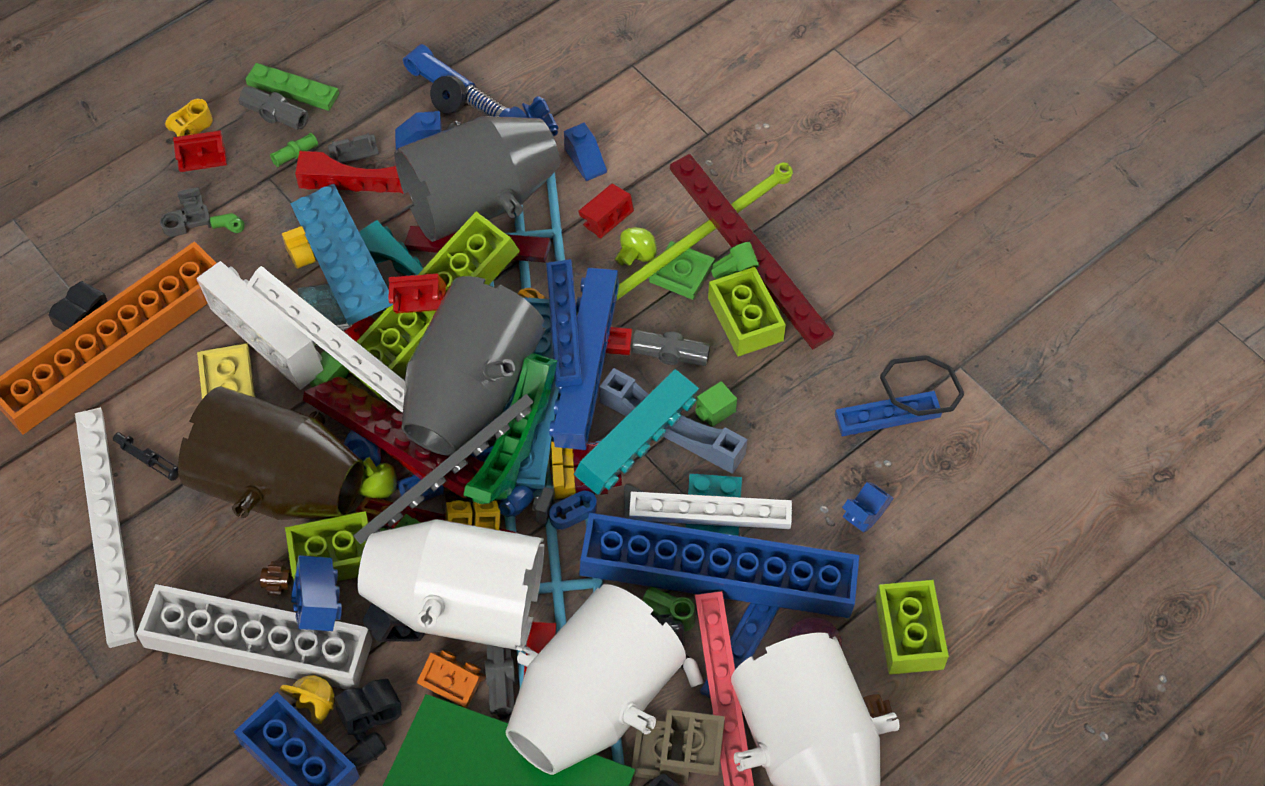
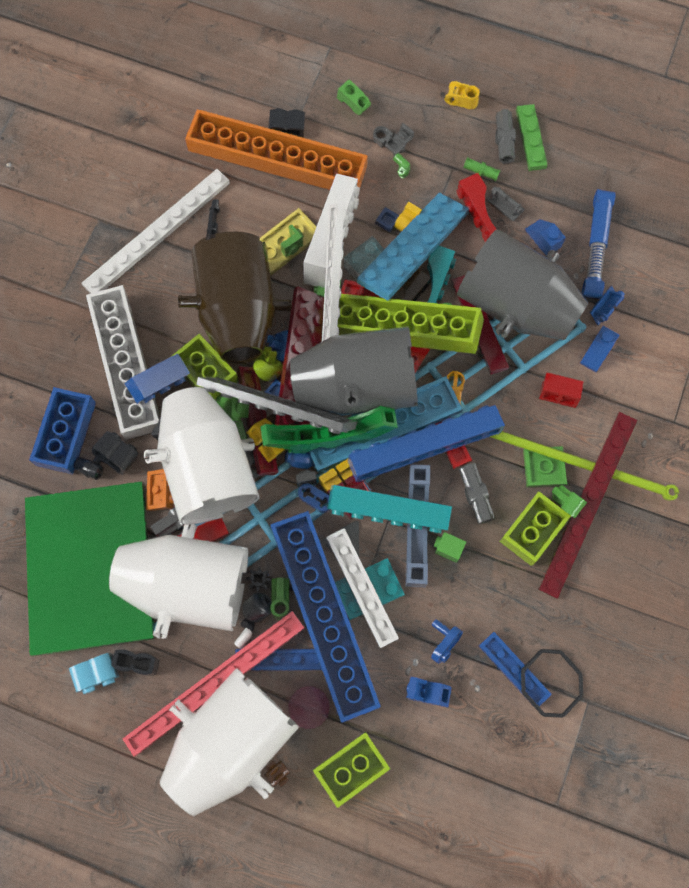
camera: 60 degrees right, 15 degrees up
(103, 224) = (353, 97): none -> bright green leg
(200, 151) = (443, 116): red hinge -> none
(239, 369) = (293, 243): none -> bright green bracket
(276, 578) = (169, 347): reddish brown gear -> none
(284, 269) = (387, 219): none -> dark blue plate
(312, 693) = (103, 415): yellow piece -> none
(416, 293) = (398, 308): red hinge -> none
(457, 94) = (586, 234): black piece -> none
(564, 323) = (438, 414): blue tile -> none
(636, 244) = (544, 424): lime piece -> none
(679, 746) = (182, 658): dark tan bracket -> none
(817, 453) = (452, 636): none -> blue piece

